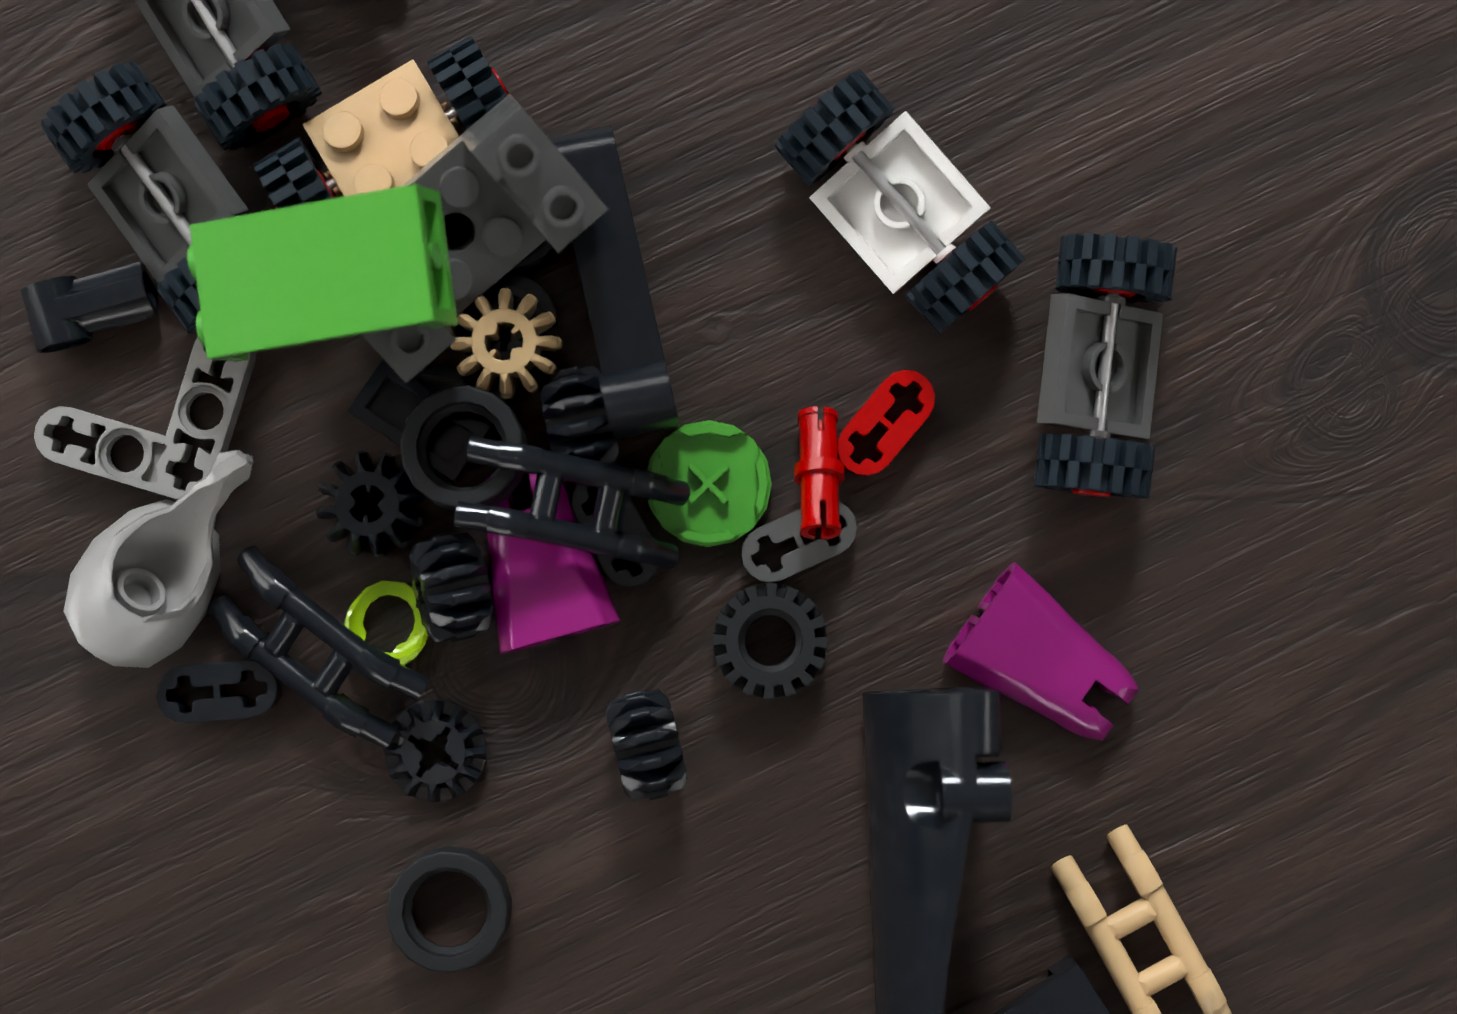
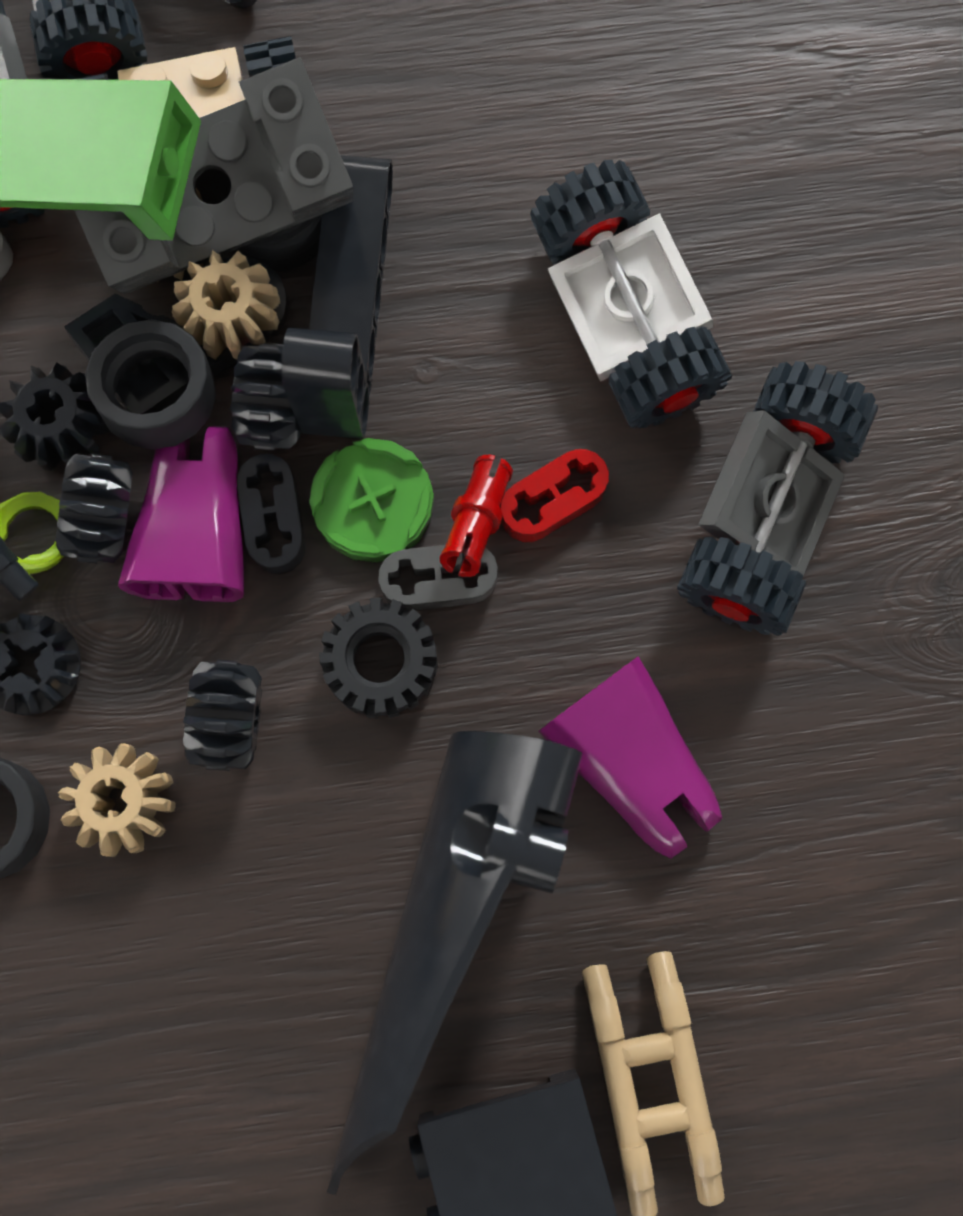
camera: 20 degrees right, 10 degrees down
(540, 523) = (193, 466): black piece -> none
(552, 859) = (95, 806): none -> tan gear

